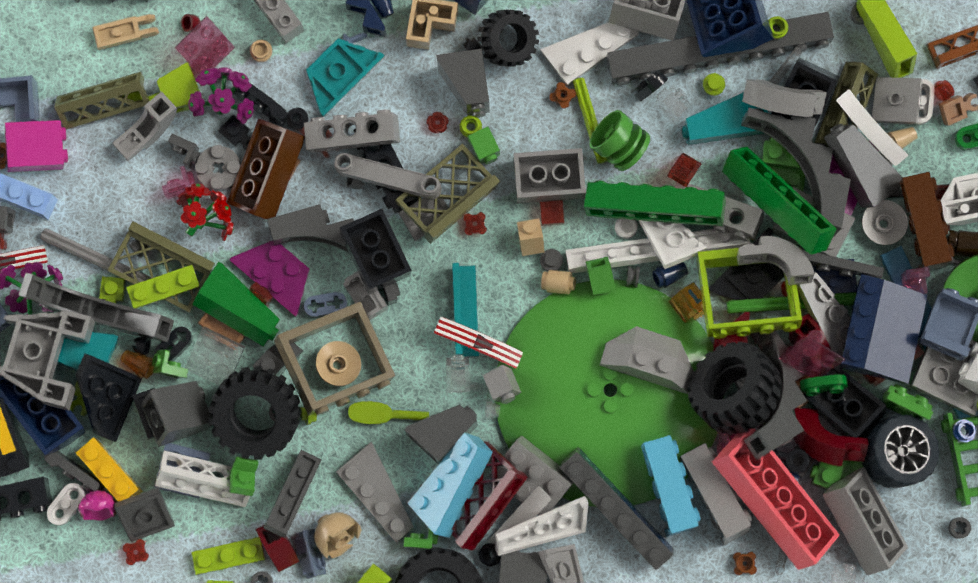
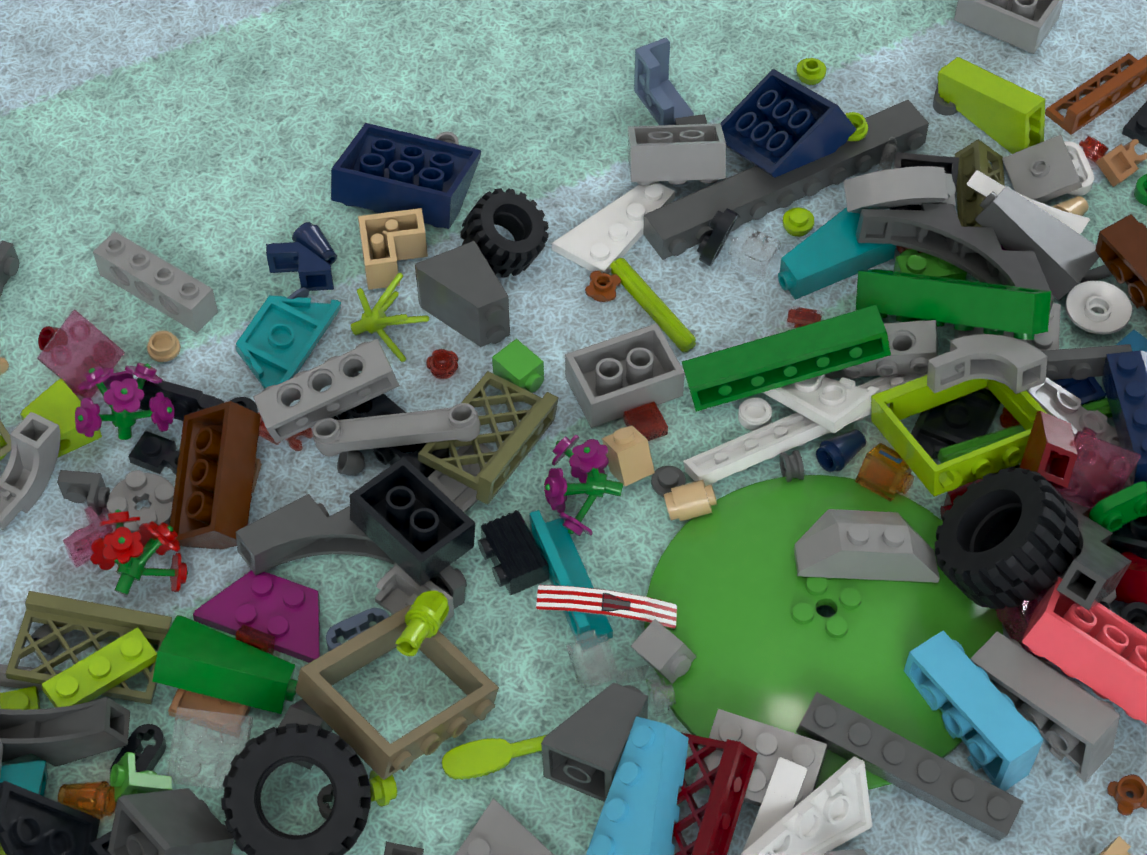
camera: 20 degrees left, 25 degrees down
(142, 345) = (87, 770): black hinge -> none
(347, 358) = (406, 691): tan dish -> none
(362, 320) = (422, 621): none -> lime arm
(404, 77) = (375, 319): none -> lime plant
(436, 282) = (514, 553): none -> black brick
(470, 120) = (486, 348): lime plate -> none
(480, 228) = (536, 474): clear red plate -> none
(495, 248) = (588, 466): none -> magenta plant
(600, 276) = (749, 470): bright green brick -> none
(619, 140) = (704, 302): bright green wheel -> none
(786, 340) = (1051, 450): none -> dark red slope

